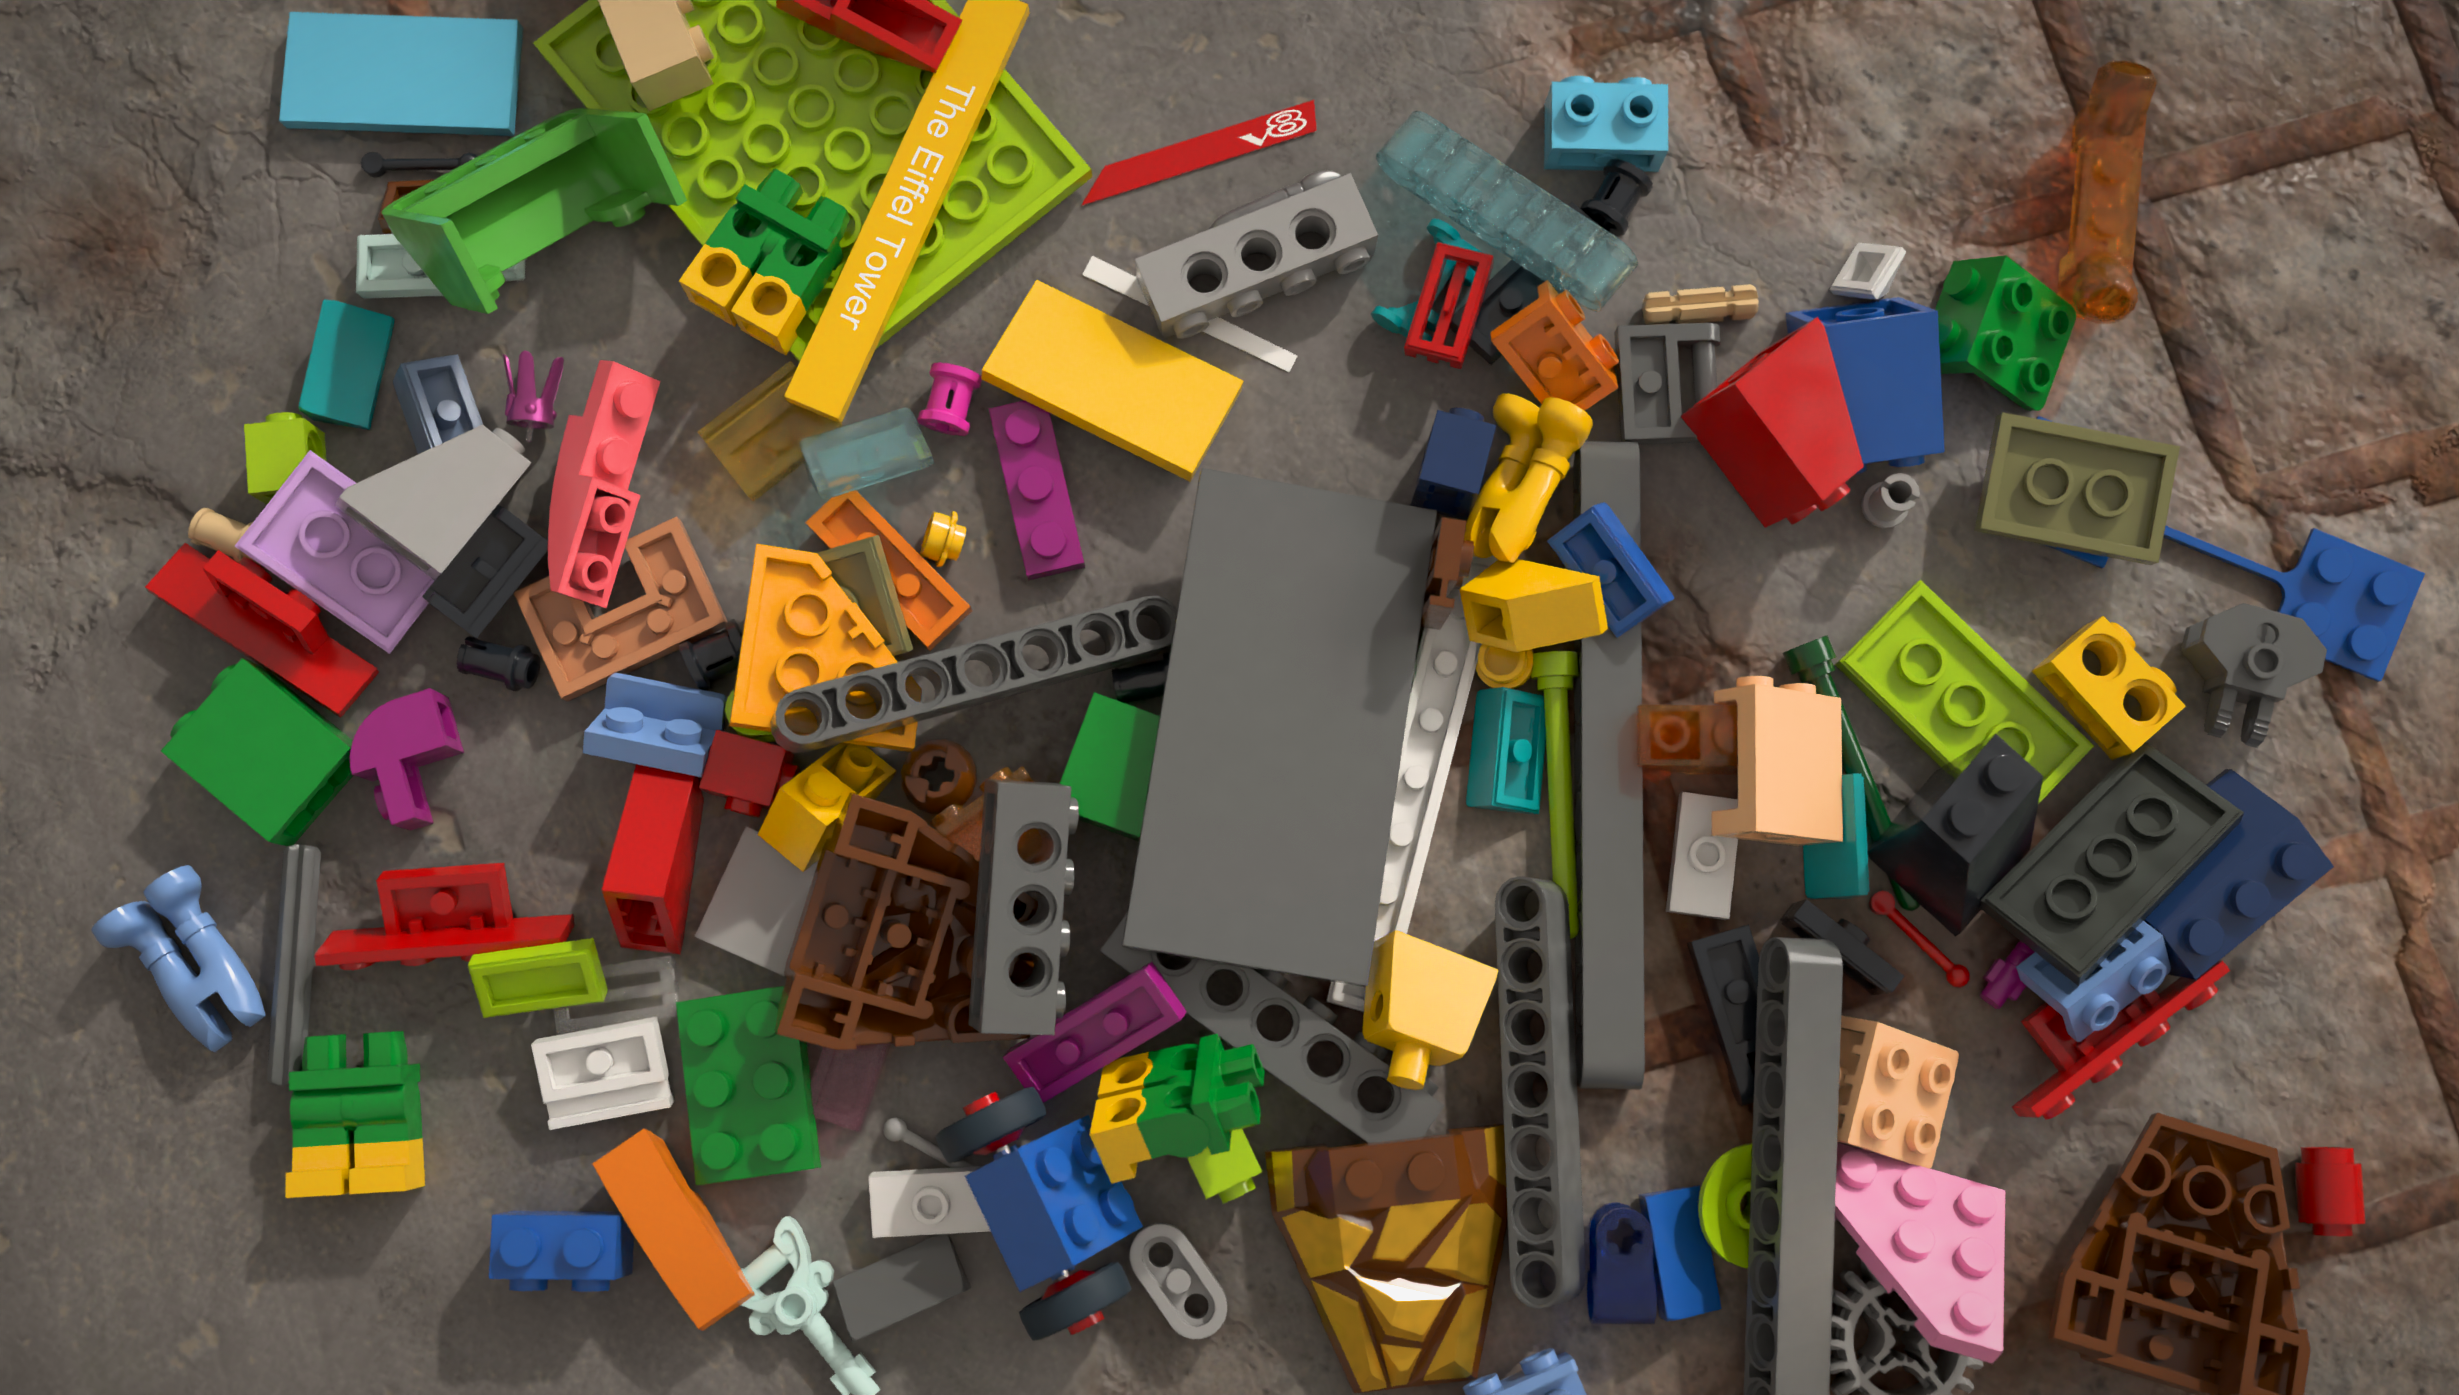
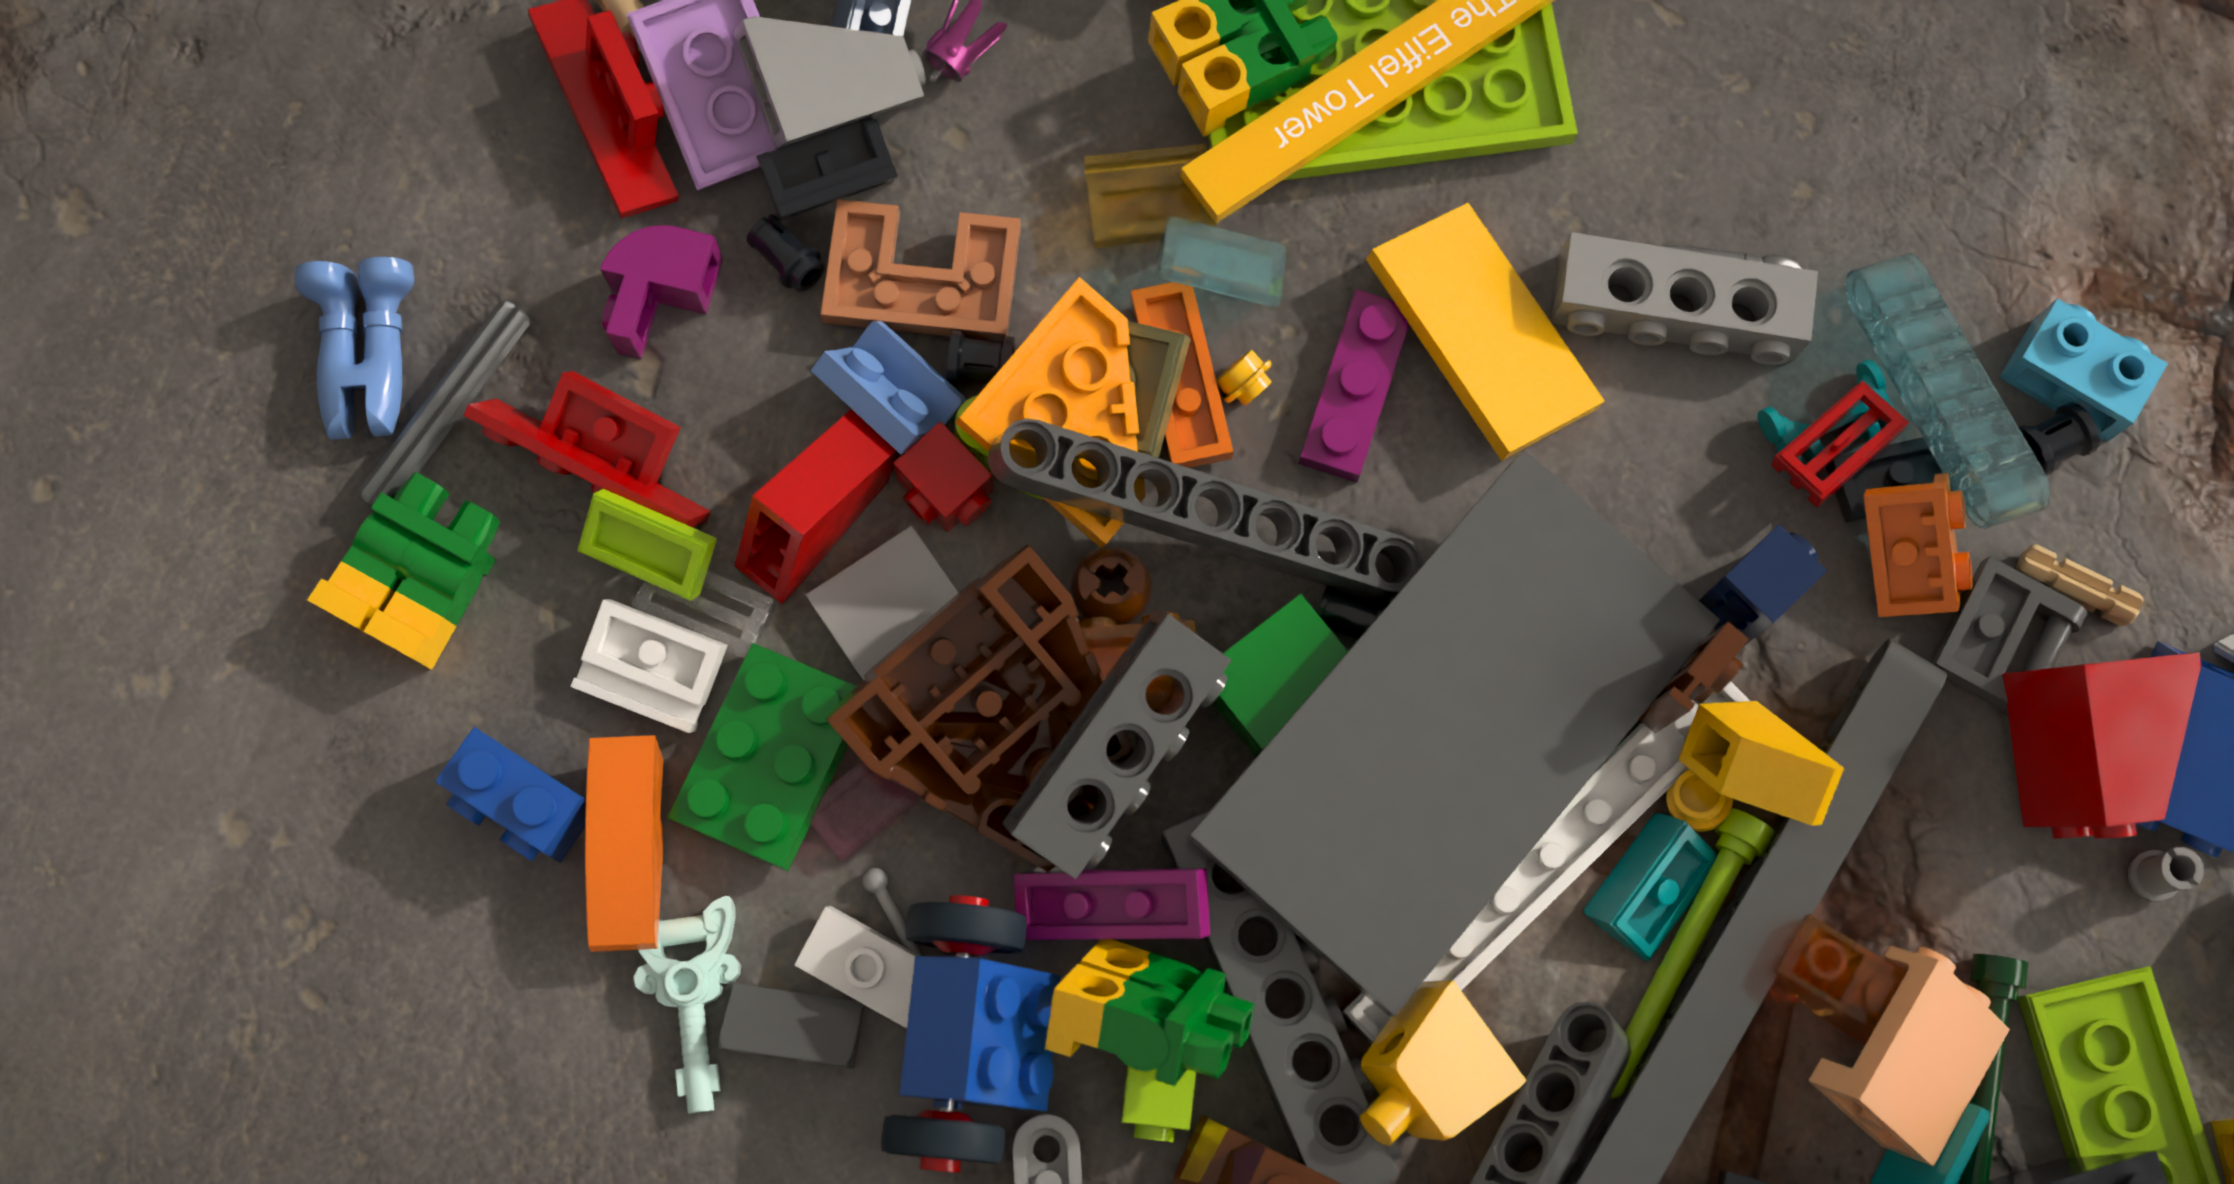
camera: 30 degrees right, 5 degrees down
(262, 752) = (536, 208): green brick -> none
(591, 483) = (961, 149): coral slope -> none
(811, 801) = (984, 535): yellow slope -> none
(962, 383) = (1334, 241): dark pink bush -> none
(1203, 151) = (1689, 180): red sticker -> none
(1218, 328) = (1607, 342): white sticker -> none
(1526, 475) = (1826, 636): yellow piece -> none
(1602, 547) = (1866, 794): blue slope -> none
(1701, 862) = (1780, 1101): white plate -> none

